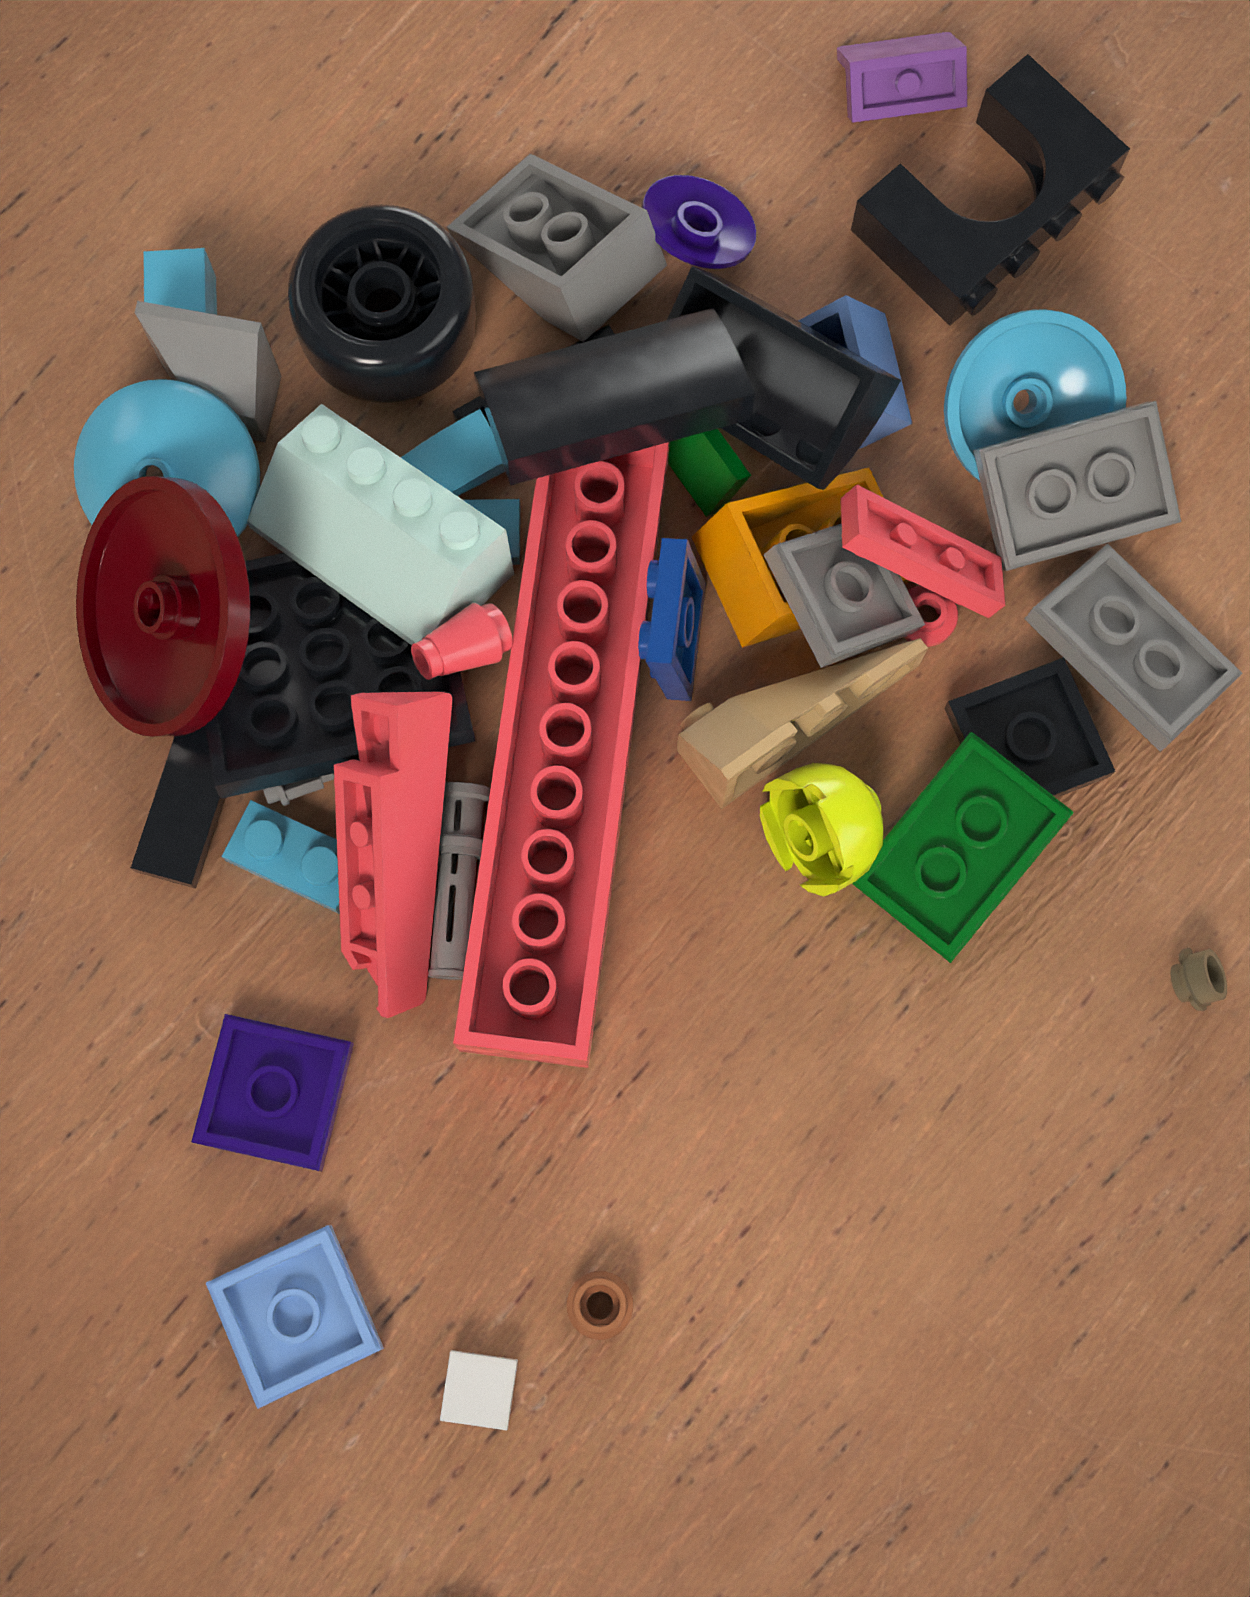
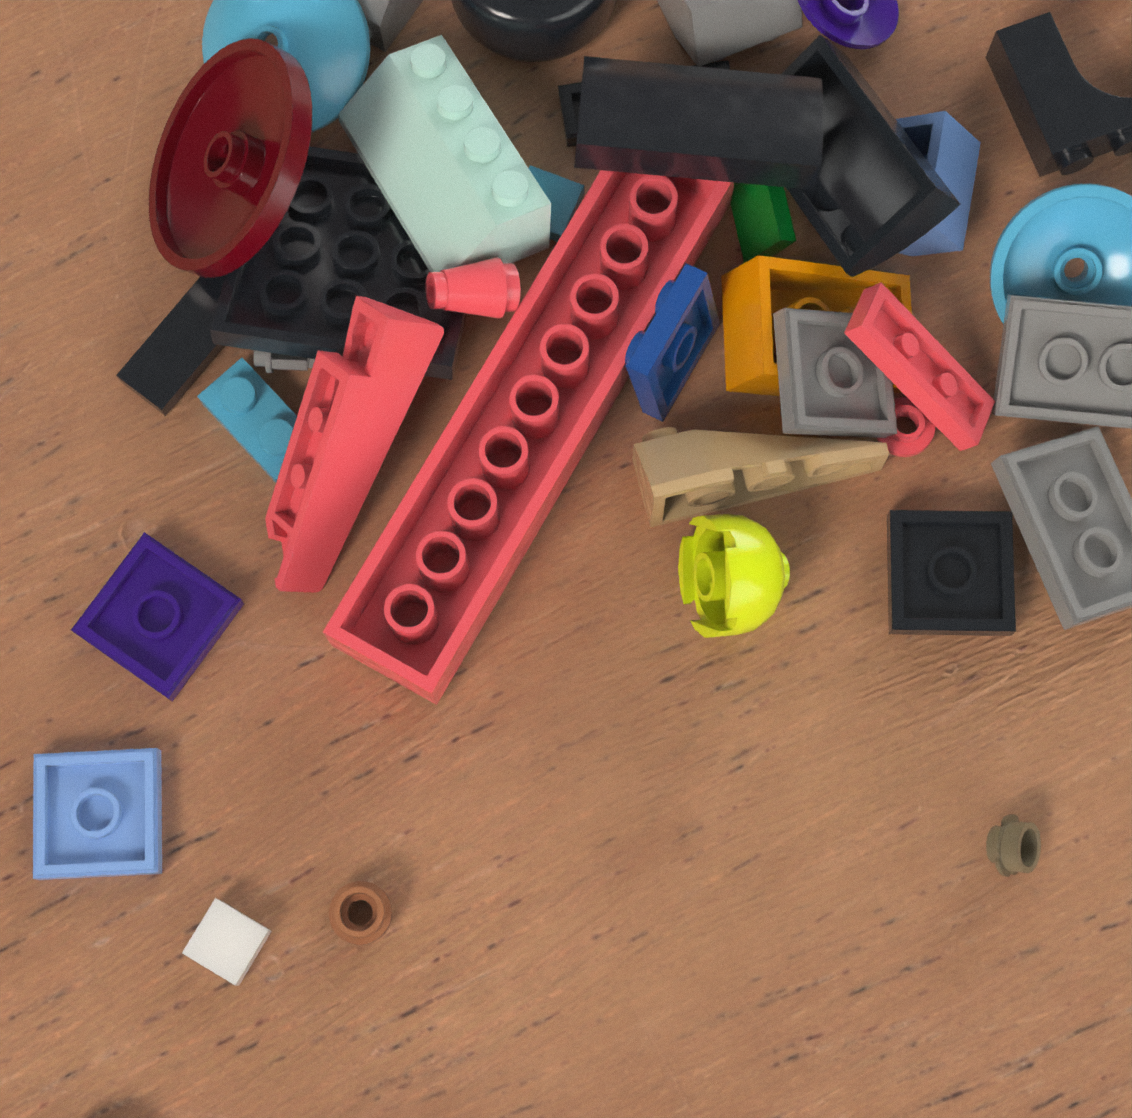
camera: 25 degrees right, 0 degrees up
(459, 455) = (542, 126): medium azure slope -> none
(466, 847) = (399, 469): light grey pin -> none
(962, 846) = (847, 643): green tile -> none

